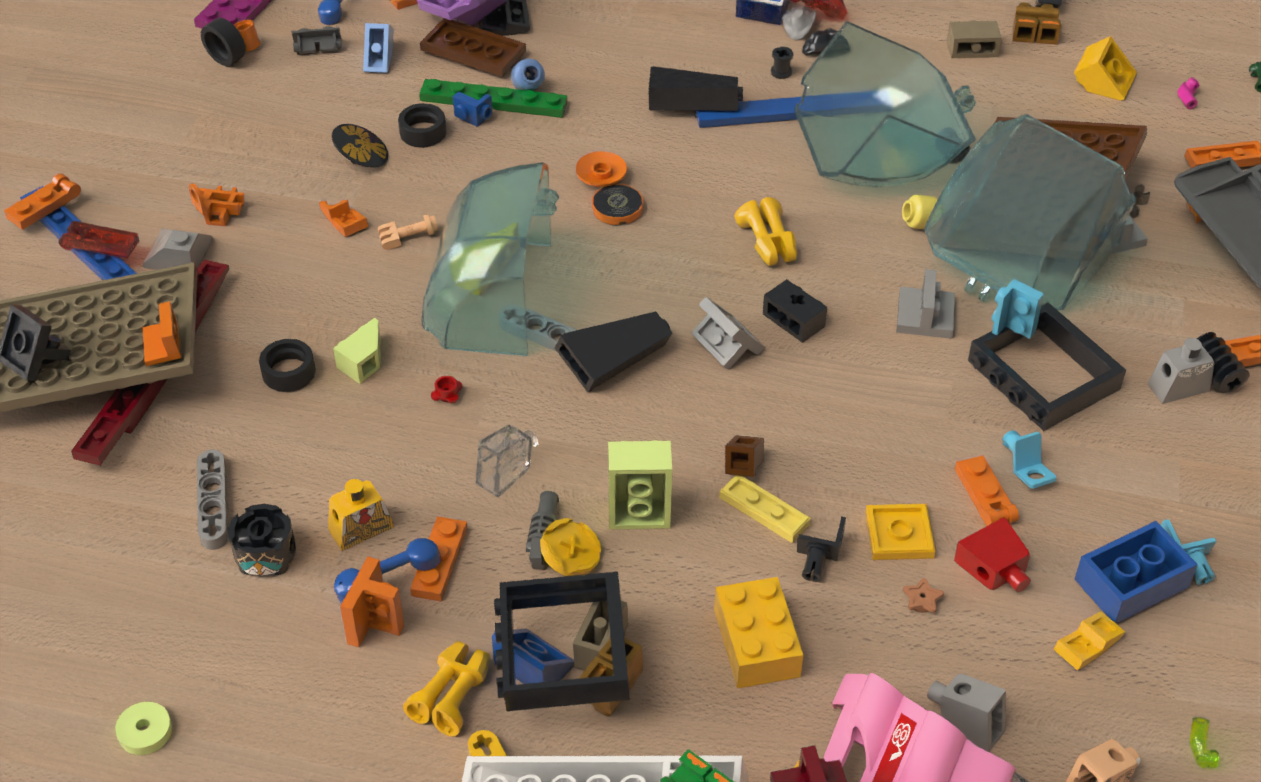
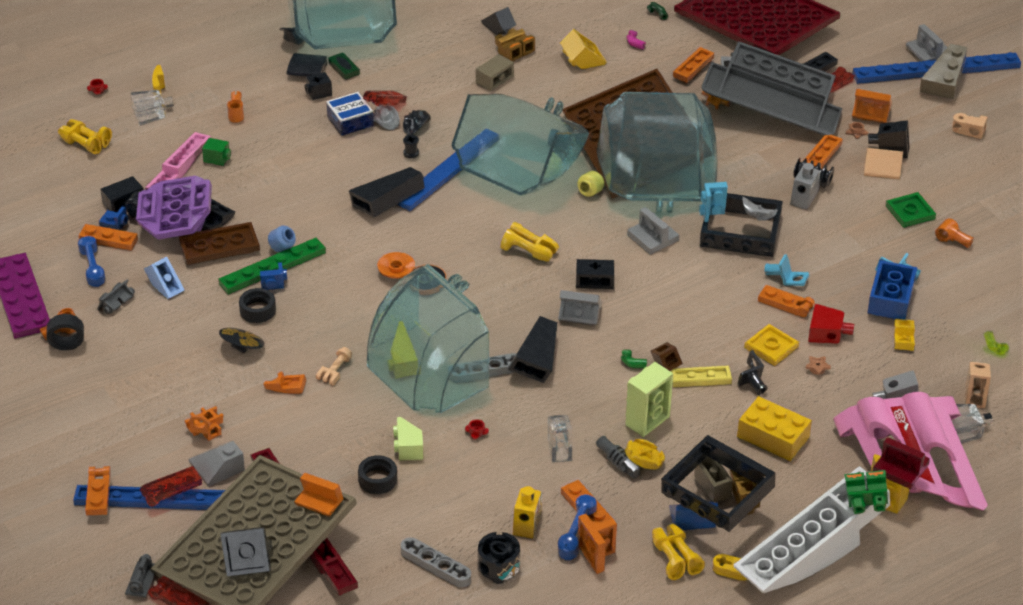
camera: 45 degrees left, 5 degrees down
(707, 434) = (631, 361): none -> green arm
(1069, 357) = (757, 211): none -> light grey hat

